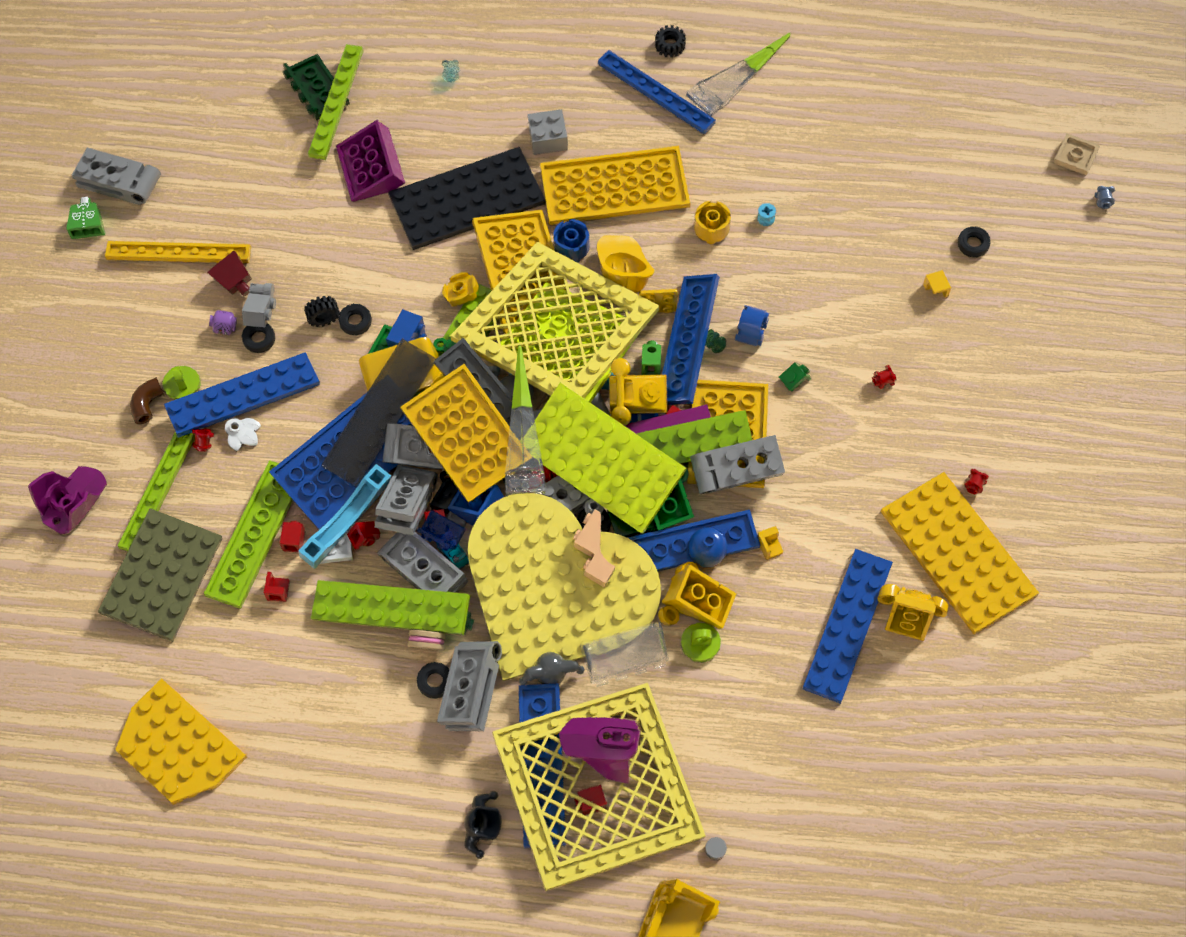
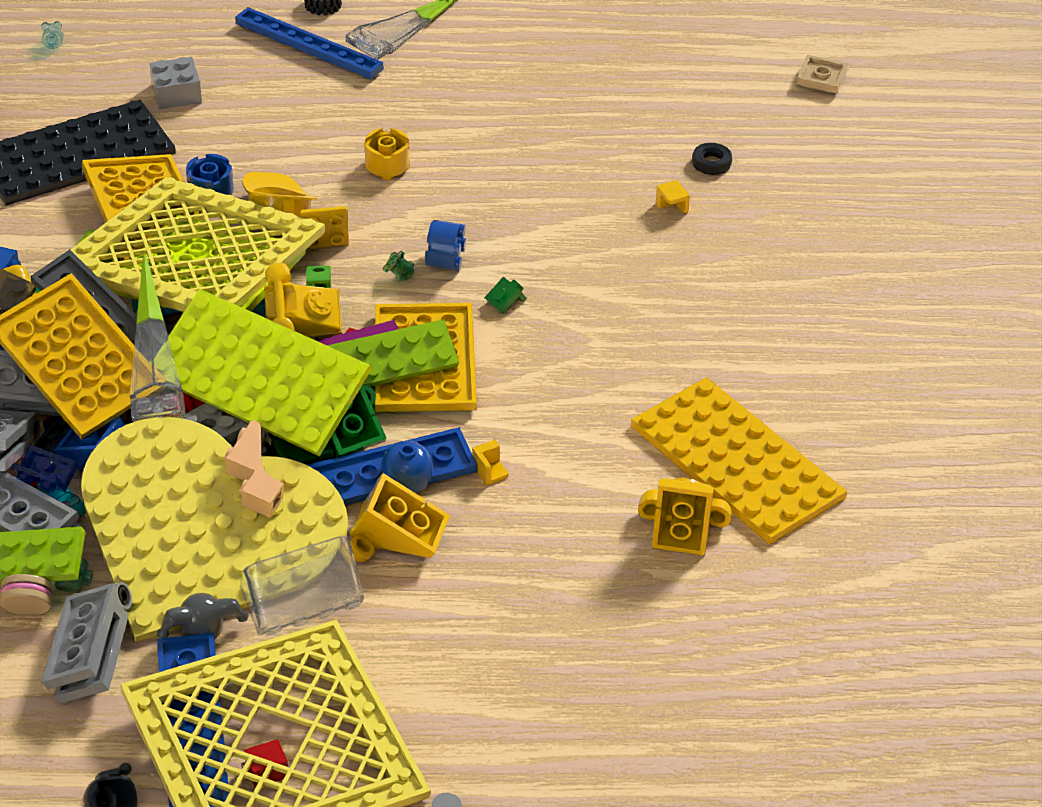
camera: 10 degrees left, 20 degrees down
(425, 672) = (28, 634): black tyre -> none
(458, 296) = (67, 233): yellow plate -> none
(593, 742) = (278, 681): magenta piece -> none
(614, 185) = (264, 127): yellow plate -> none
(689, 337) = (366, 262): blue plate -> none
(700, 642) = (406, 575): lime tile -> none
(719, 468) = (439, 376): light grey hinge -> none
(763, 218) = (454, 145): medium azure wheel -> none
(847, 626) = (601, 548): blue plate -> none
(884, 377) = (618, 289): red brick -> none
(976, 482) = (749, 383): red brick -> none
(1105, 197) = (861, 108): sand blue brick -> none

